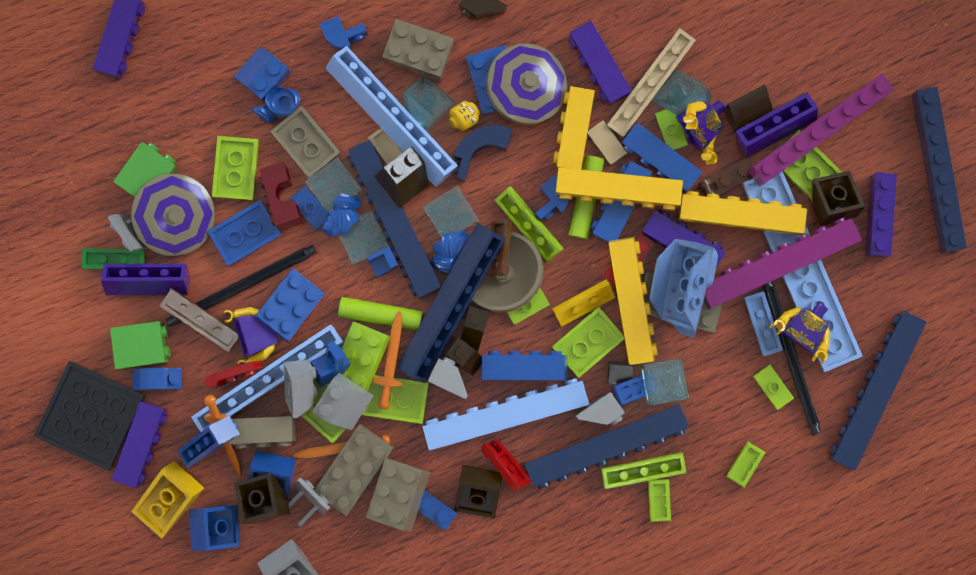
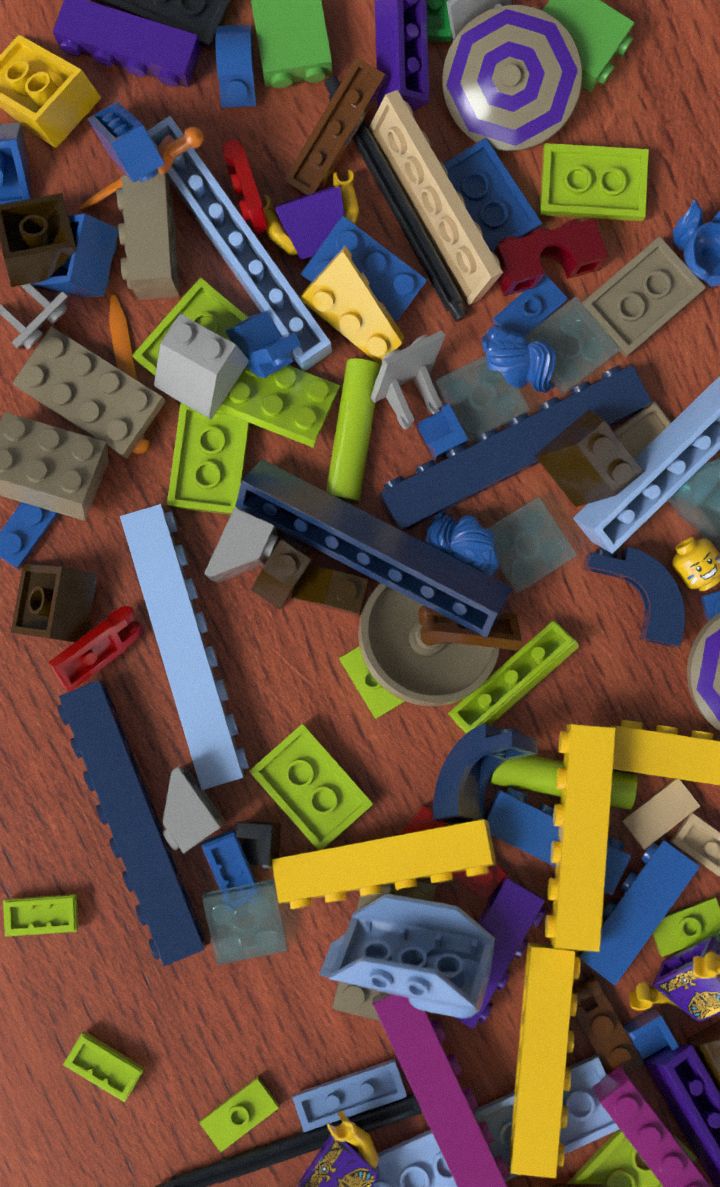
camera: 90 degrees right, 0 degrees up
(244, 262) = (434, 198): none -> tan plate
(299, 386) = (221, 291): light grey slope -> none
(308, 313) = (348, 304): none -> yellow wing
(345, 275) = (406, 365): none -> light grey plate
(388, 380) = (238, 444): orange sword -> none
(524, 367) = (265, 677): blue brick -> none
(555, 202) = (552, 724): blue brick -> none
(579, 251) = (469, 767): none -> dark blue arch
(583, 303) = (379, 778): yellow plate -> none
(643, 470) = (91, 887): lime brick -> none
(730, 153) = (649, 1033): none -> blue panel

